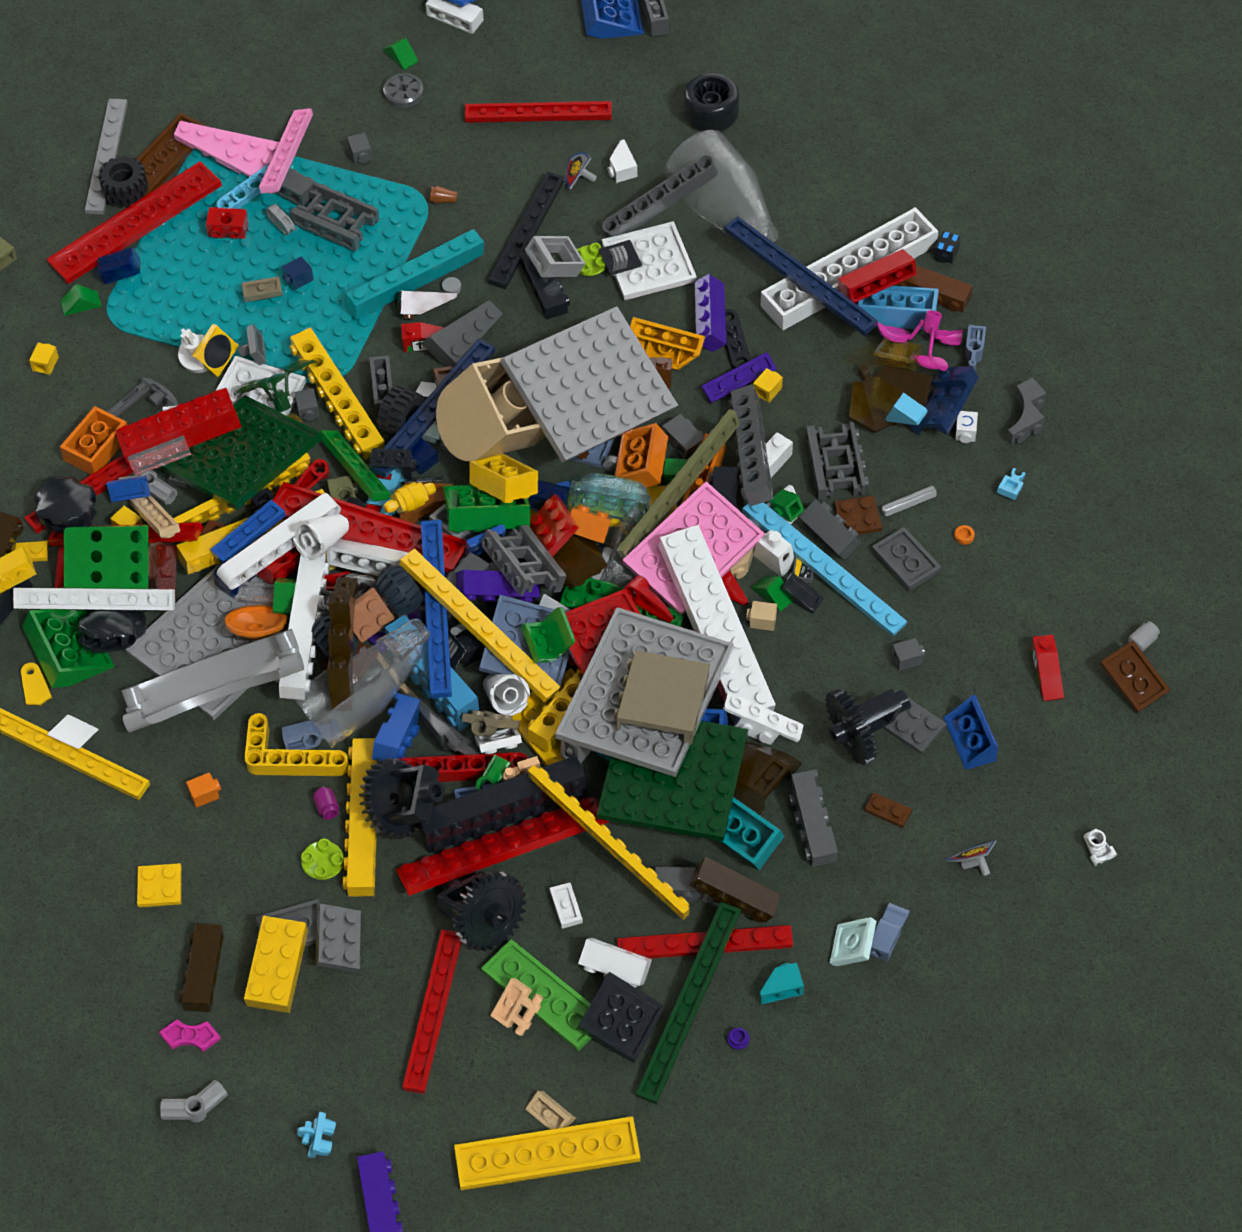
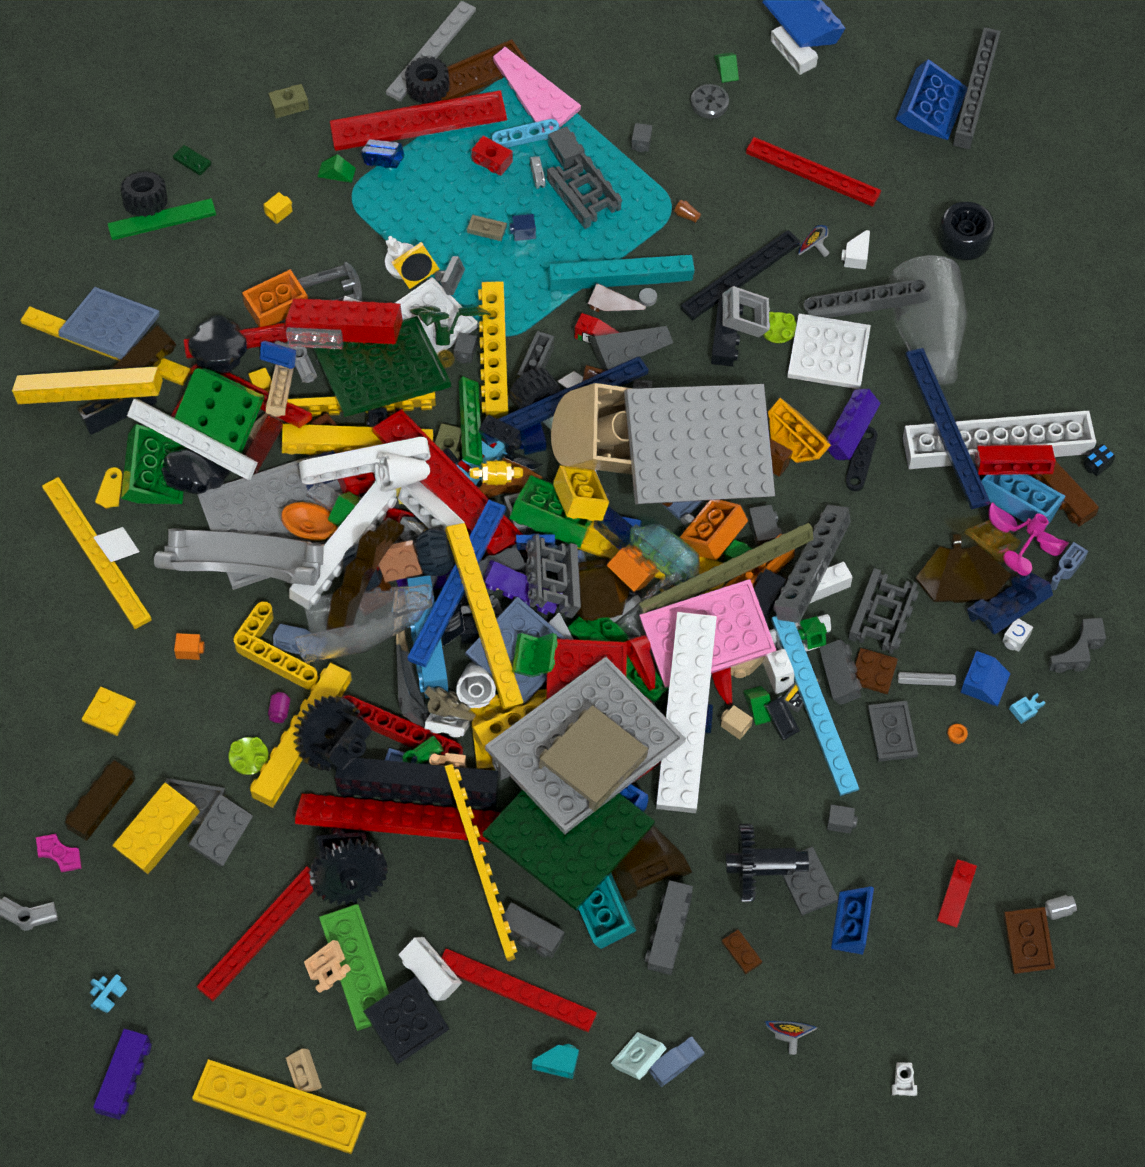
camera: 25 degrees right, 5 degrees up
(248, 531) = (345, 440): blue plate -> none
(286, 151) = (574, 113): bright pink plate -> none
(311, 477) = (431, 414): red piece -> none
(400, 729) = (368, 676): blue wedge -> none
(553, 525) = (598, 555): red plate -> none
(566, 905) = (420, 897): white plate -> none
(620, 257) = (804, 337): black sticker -> none
(688, 1003) = (469, 1037): dark green plate -> none
(734, 890) = (564, 958): dark brown brick -> none
(737, 378) = (843, 495): dark purple plate -> none
(738, 1038) = (494, 1090): dark purple plate -> none
(760, 721) = (675, 817): white bracket -> none
(768, 385) = (864, 513): yellow brick -> none
(906, 411) = (969, 597): medium azure slope -> none
(961, 476) = (986, 679): none -> blue slope

